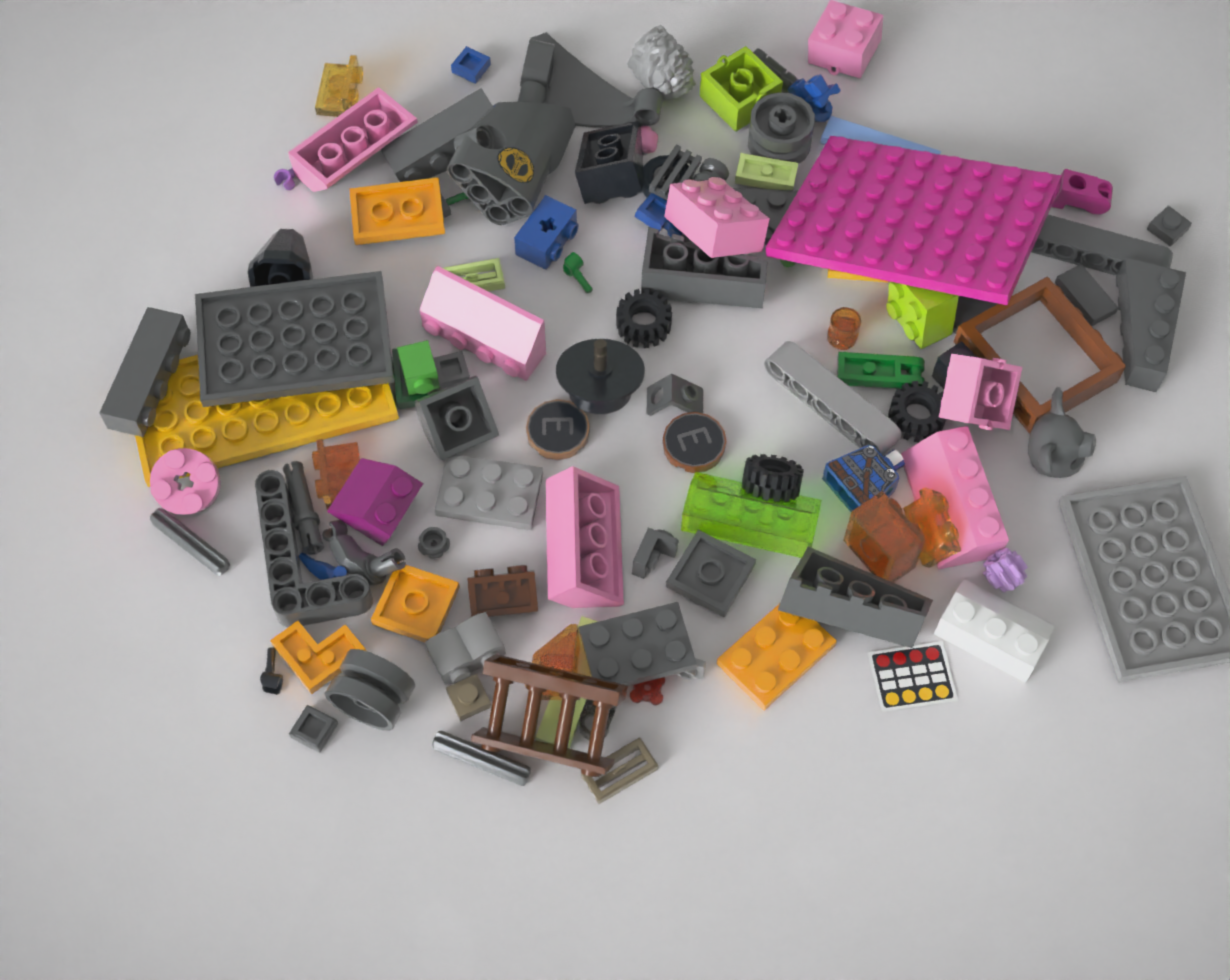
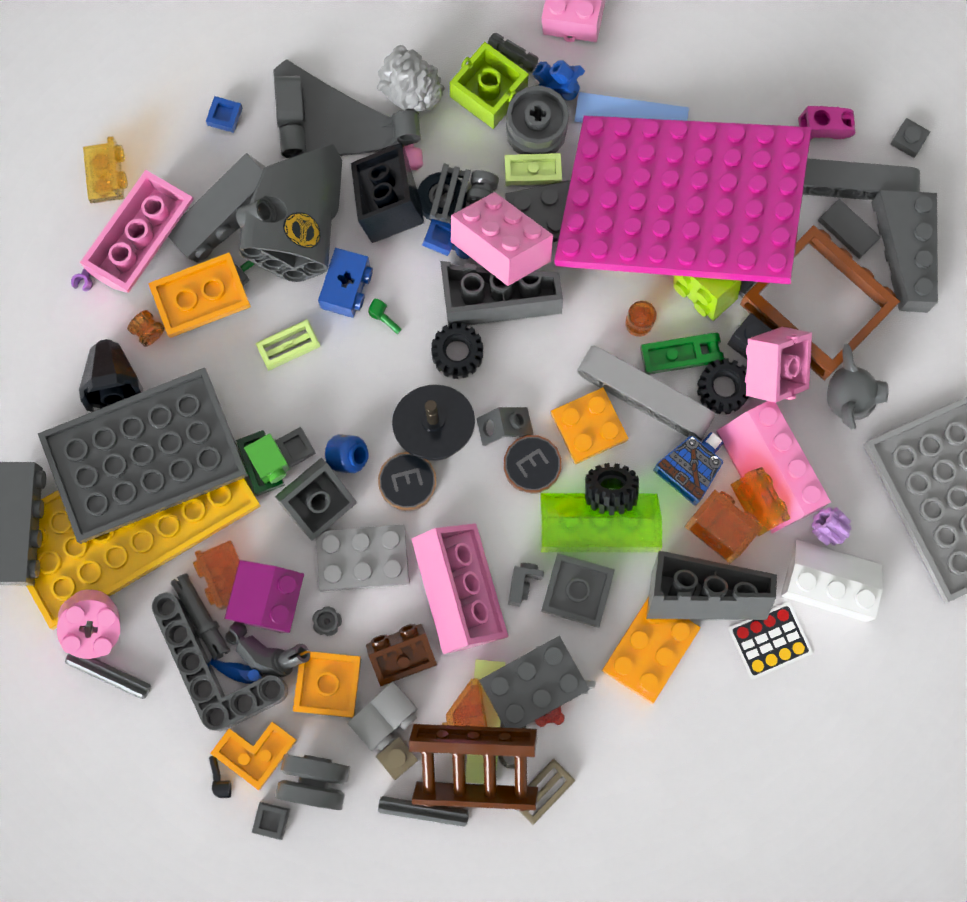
camera: 15 degrees left, 15 degrees up
(334, 230) = (146, 328): none -> clear orange wheel
(483, 324) = (312, 398): slope -> none
(502, 384) = (346, 453): none -> blue head
(764, 419) = (589, 425): none -> light orange plate

